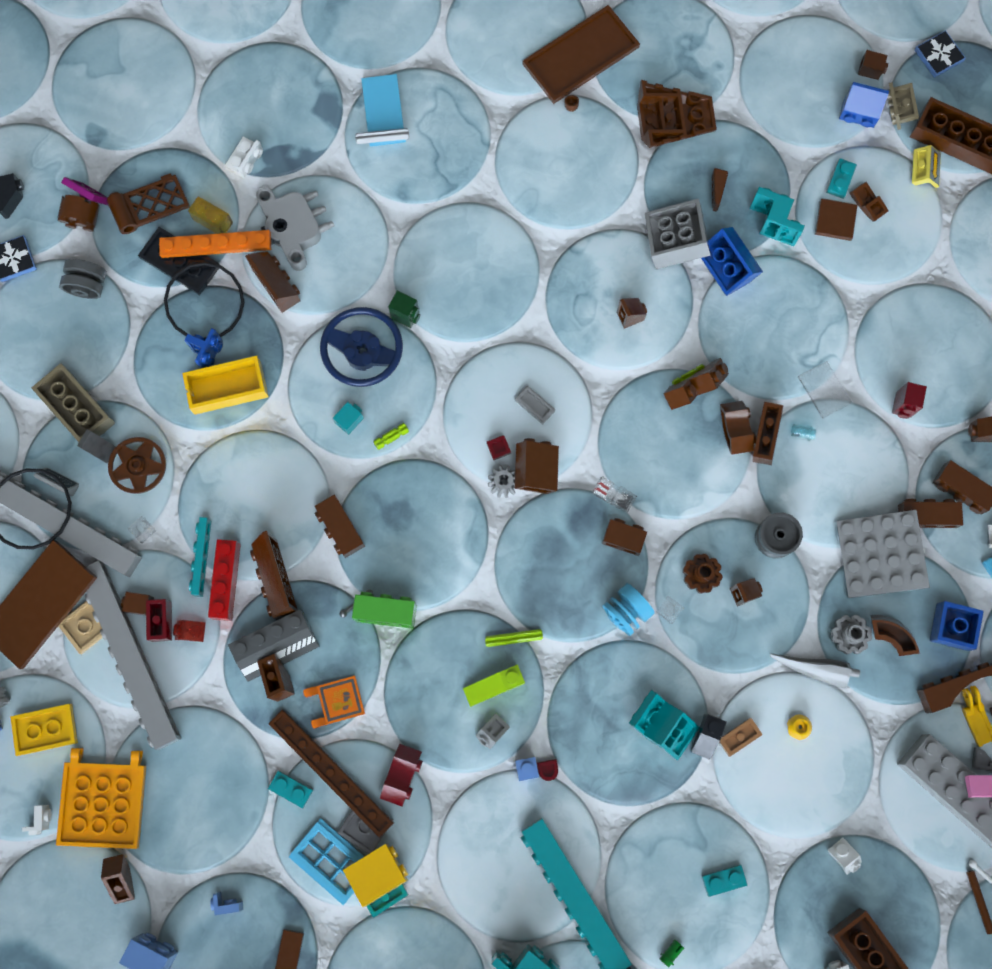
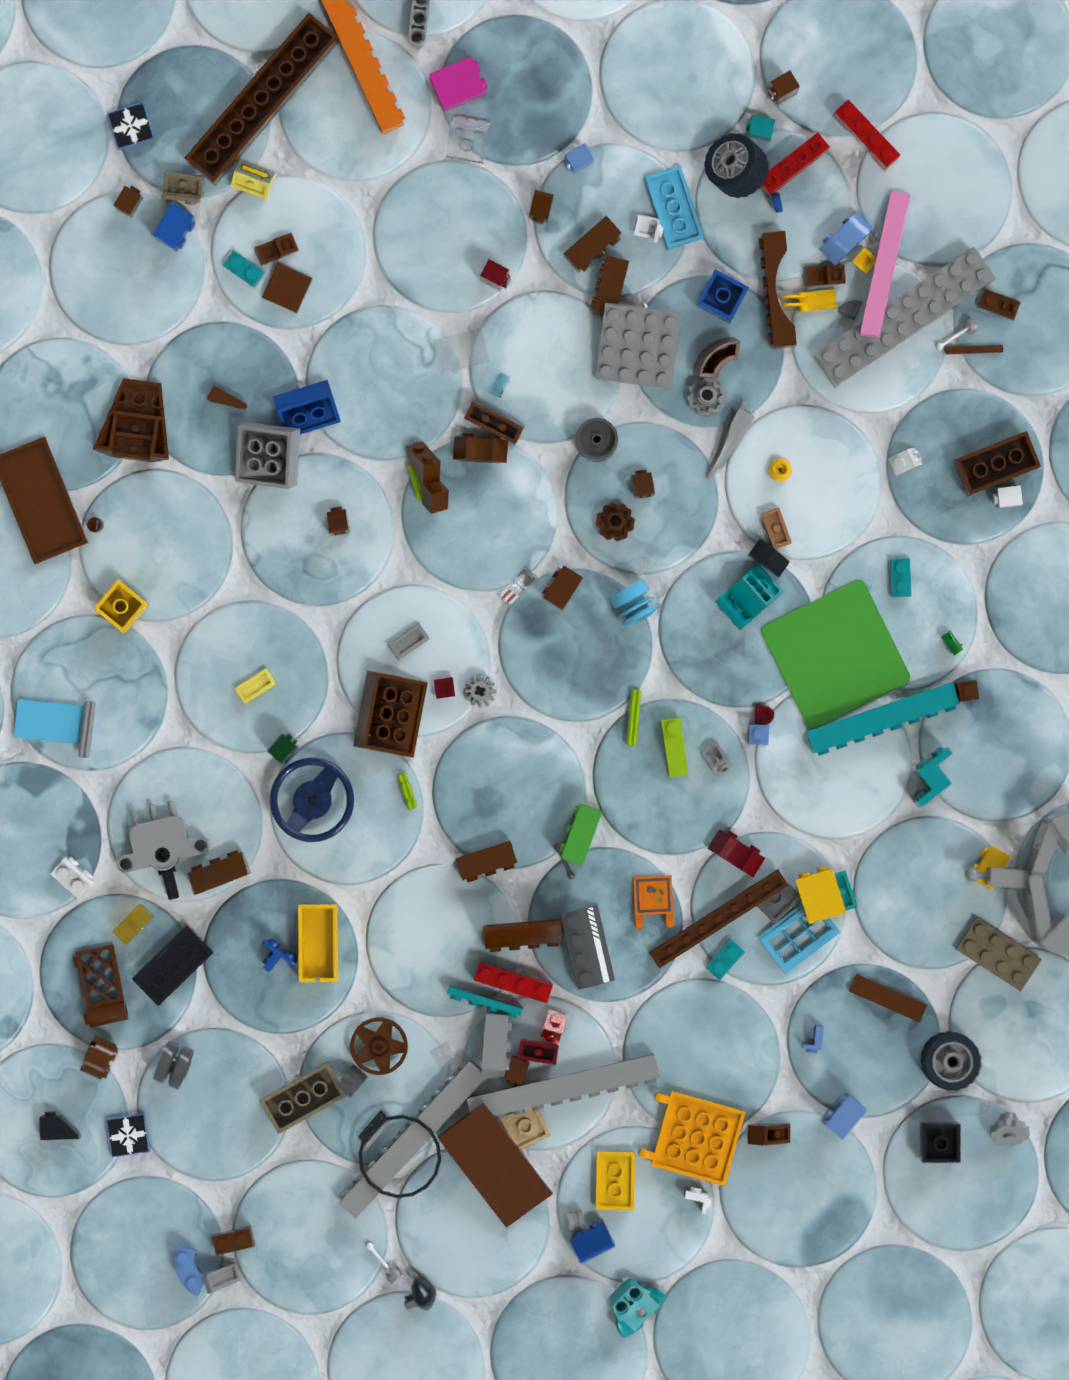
camera: 75 degrees left, 10 degrees up
(85, 191) = (78, 1044): magenta plate -> none
(157, 576) = (496, 1045): none -> light grey brick
(196, 265) = (184, 946): black piece -> none
(215, 243) = (167, 924): orange plate -> none
(275, 678) = (619, 951): reddish brown slope -> none
(348, 417) = (379, 828): teal brick -> none
(458, 275) = (255, 686): none -> light yellow tile
(461, 403) = (390, 714): none -> reddish brown slope
(502, 139) = (121, 606): none -> yellow brick
(536, 466) = (474, 655): reddish brown brick -> none
(628, 831) = (835, 654): none -> bright green piece
(777, 210) = (273, 350): teal bracket -> none

